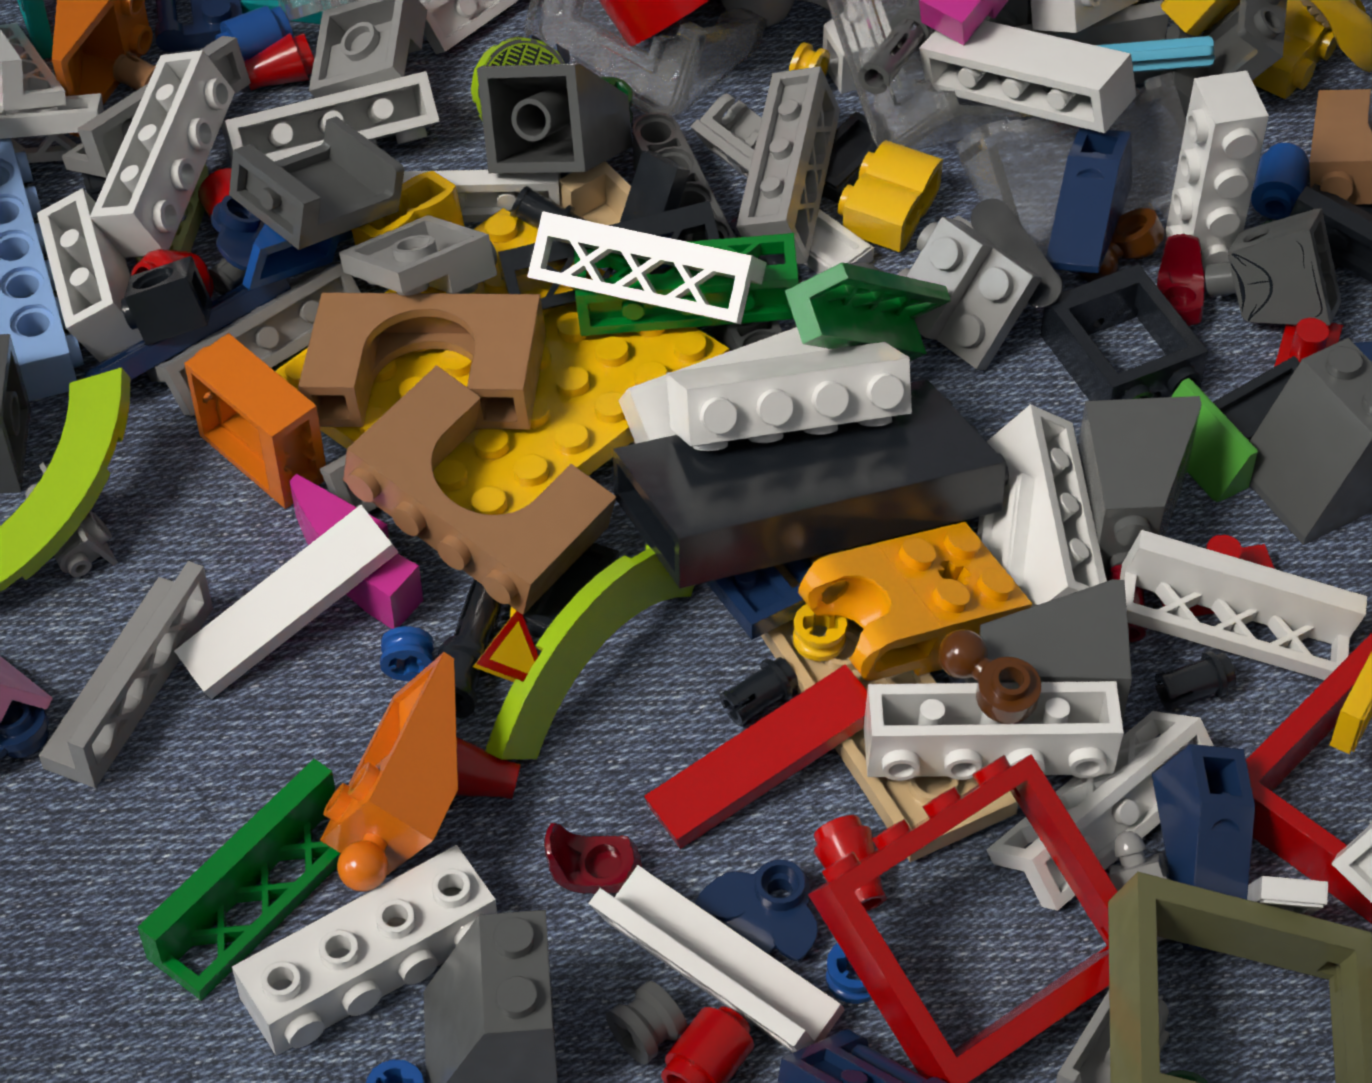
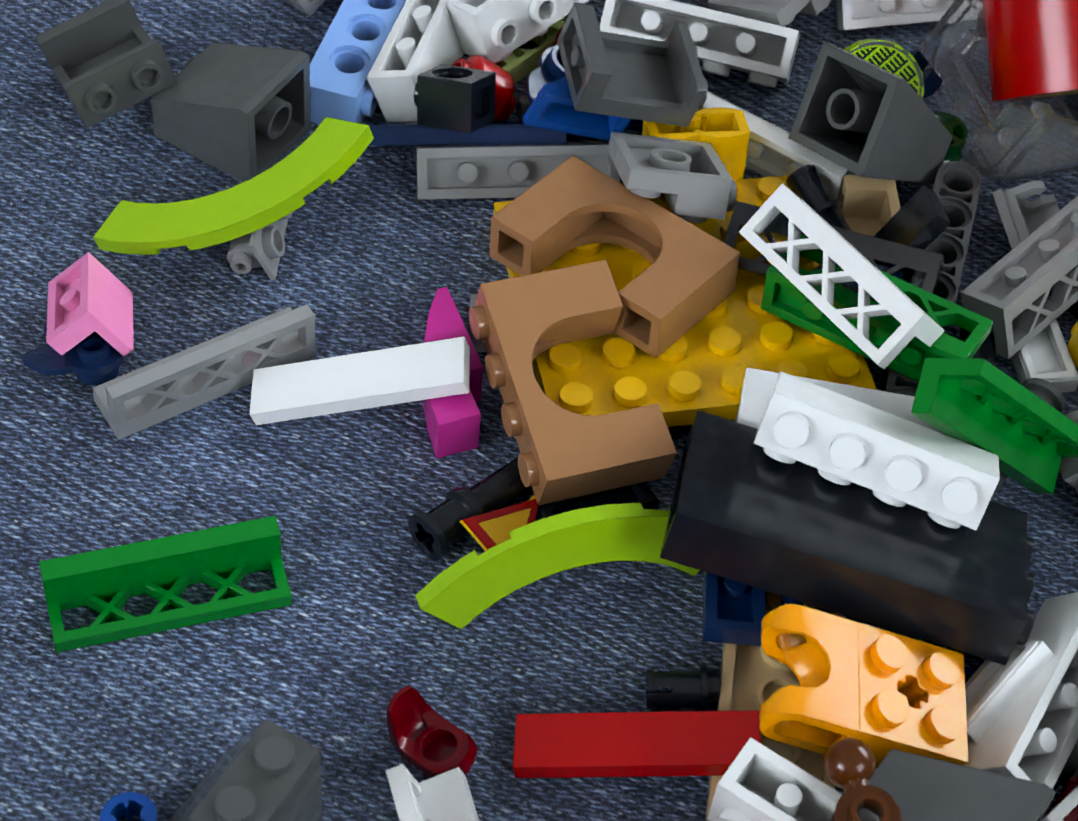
camera: 30 degrees right, 0 degrees up
(255, 418) = (451, 222): orange window -> none
(362, 951) = (193, 692): white brick -> none
(400, 782) = (307, 586): orange slope -> none
(405, 652) = (423, 480): blue bush -> none
(483, 773) = (391, 600): red cone -> none
(817, 647) = (754, 684): yellow bush -> none

